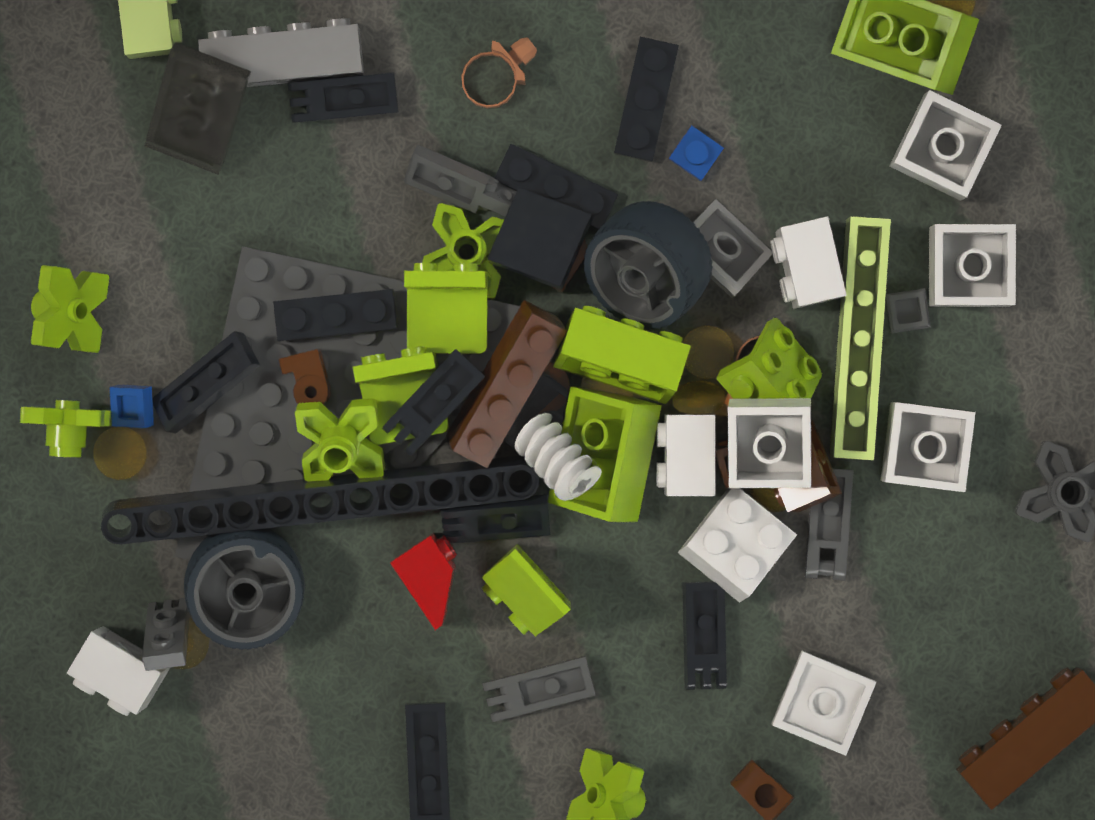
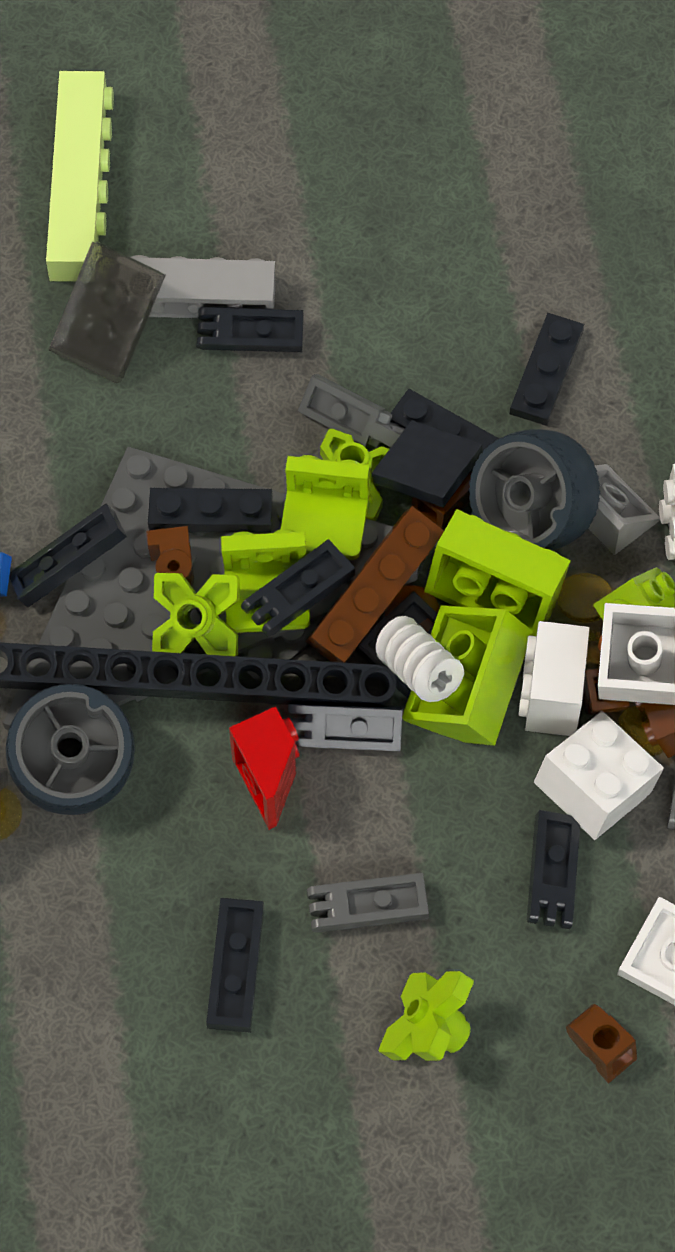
camera: 10 degrees right, 25 degrees down
(522, 52) = (420, 315): nougat piece -> none
(525, 591) = (369, 785): lime slope -> none
(696, 153) = (591, 420): blue plate -> none

